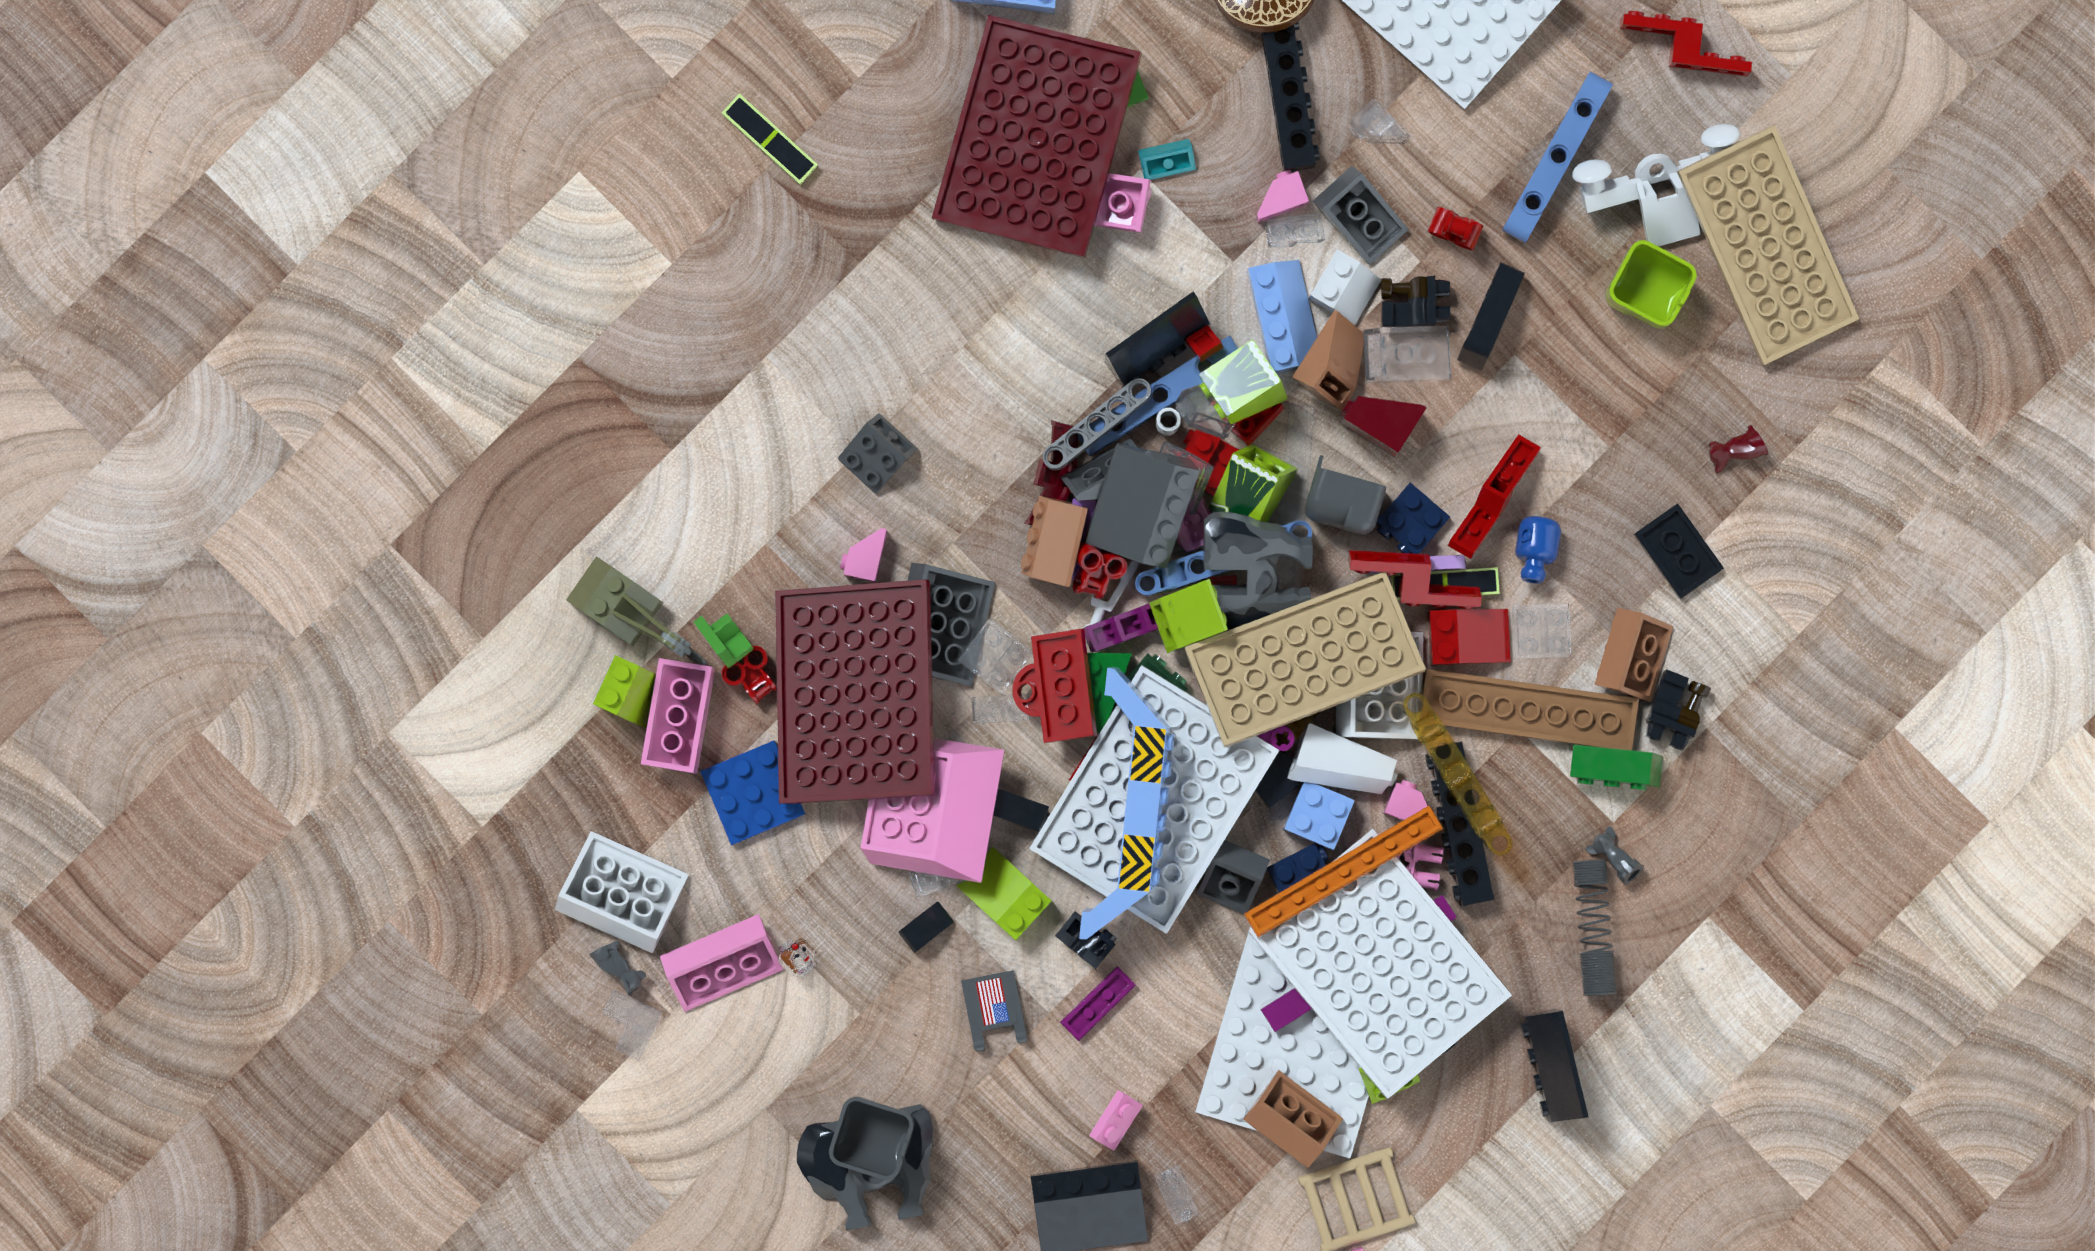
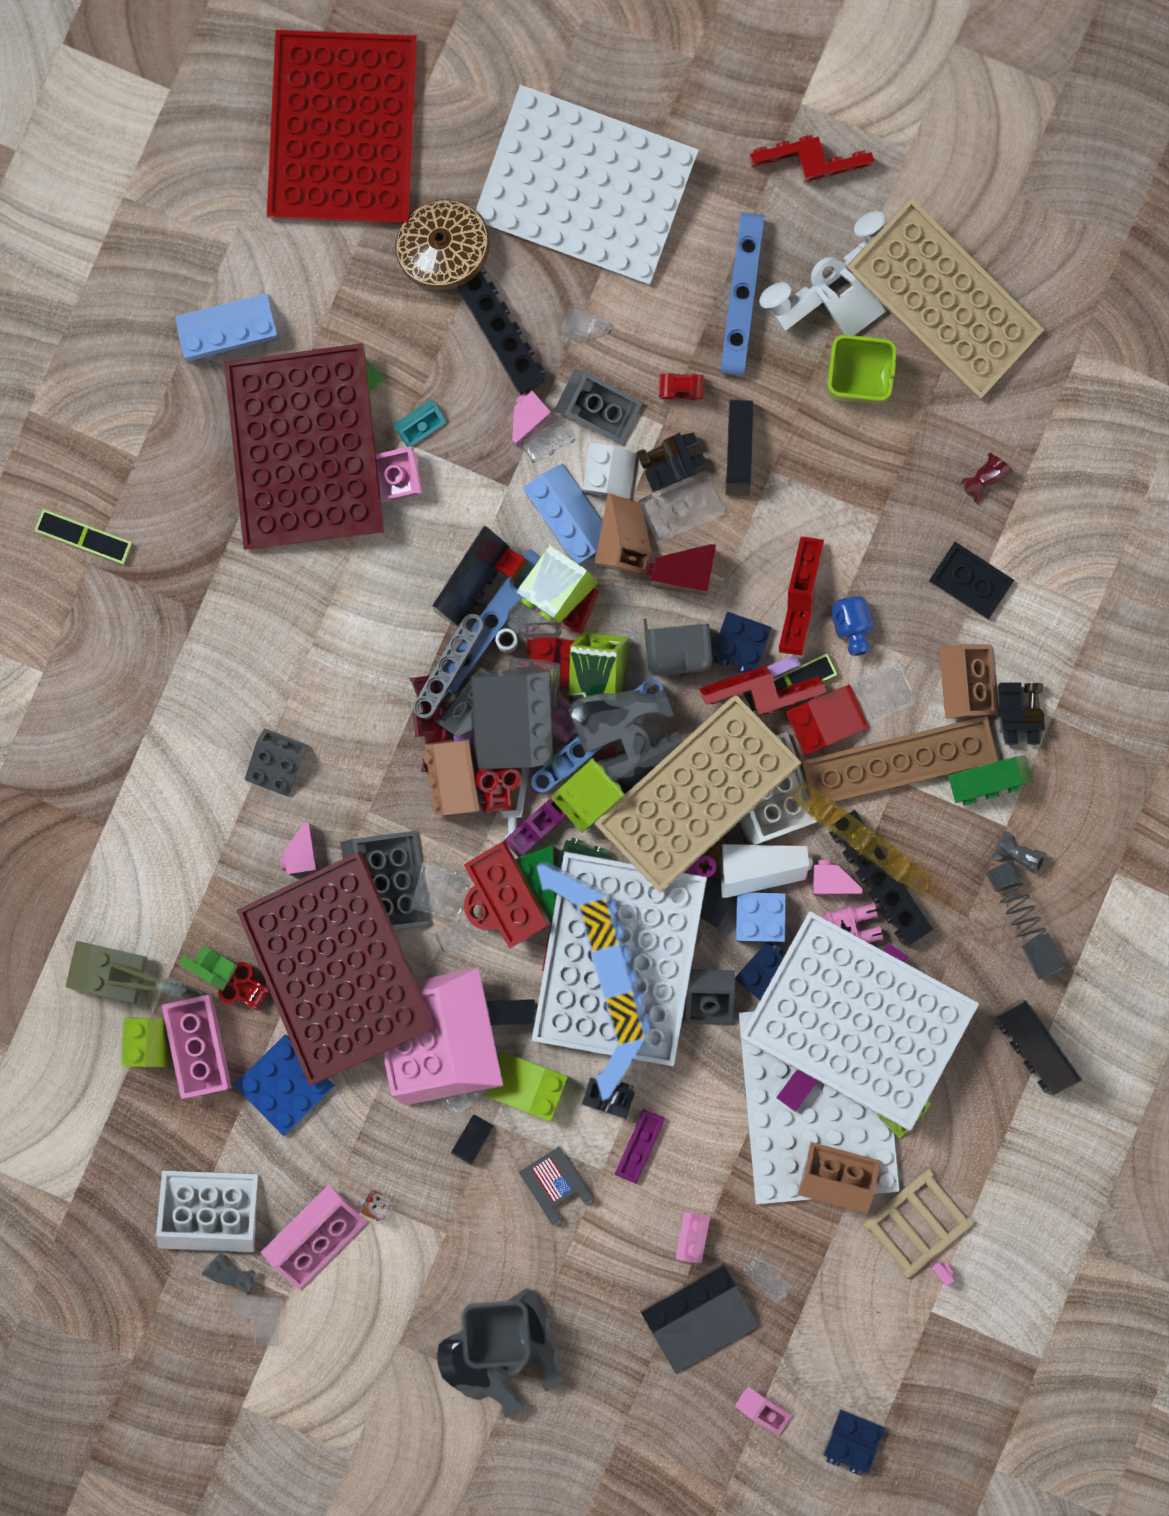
camera: 20 degrees left, 0 degrees up
(1343, 871) = (799, 956): orange tile -> none

